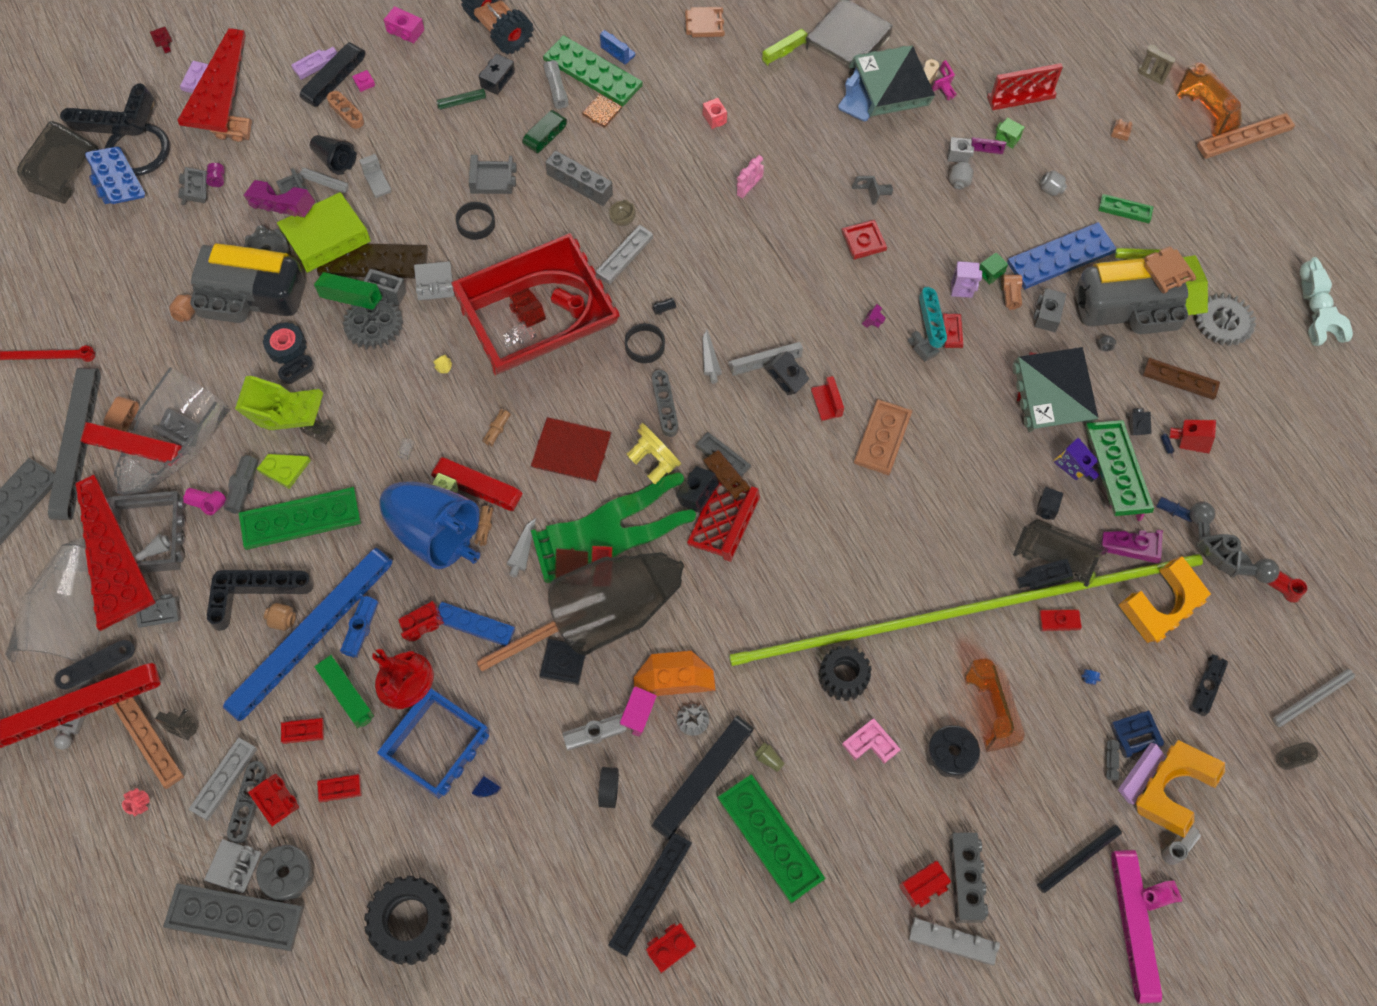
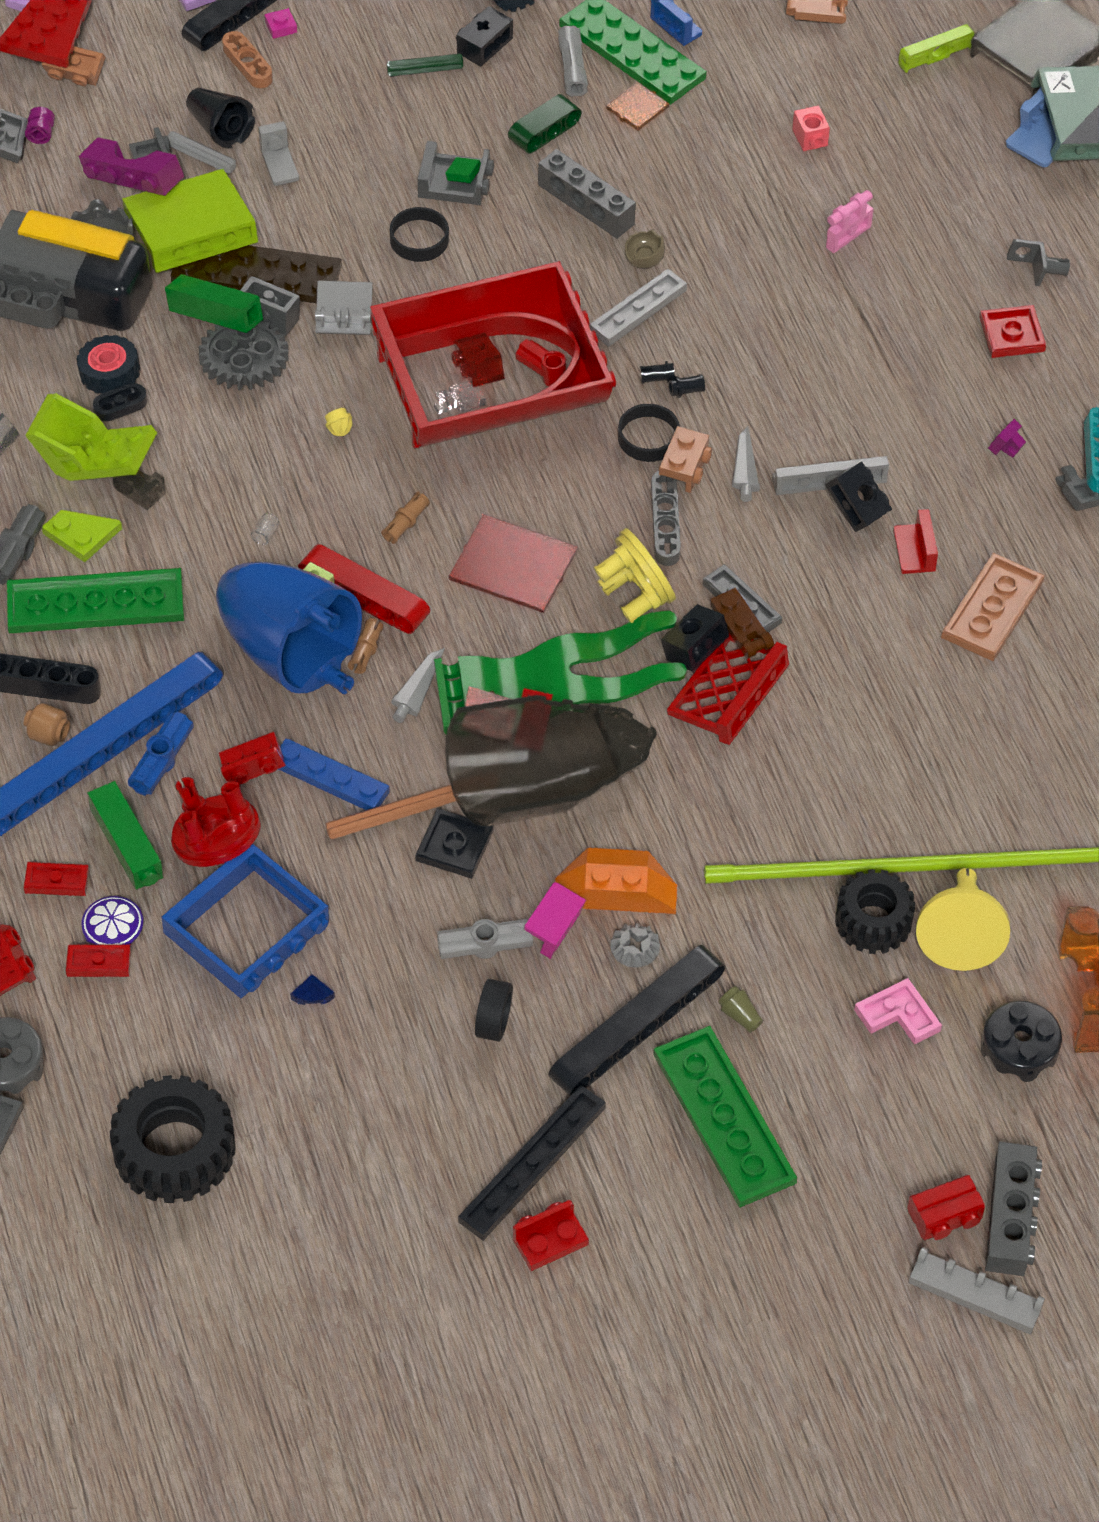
camera: 10 degrees right, 10 degrees down
(344, 757) = (112, 921): none -> dish
(497, 171) = (463, 170): none -> green tile
(644, 299) = (657, 372): none -> black pin
(671, 359) = (686, 457): none -> nougat bracket
(904, 678) = (963, 926): none -> light yellow piece

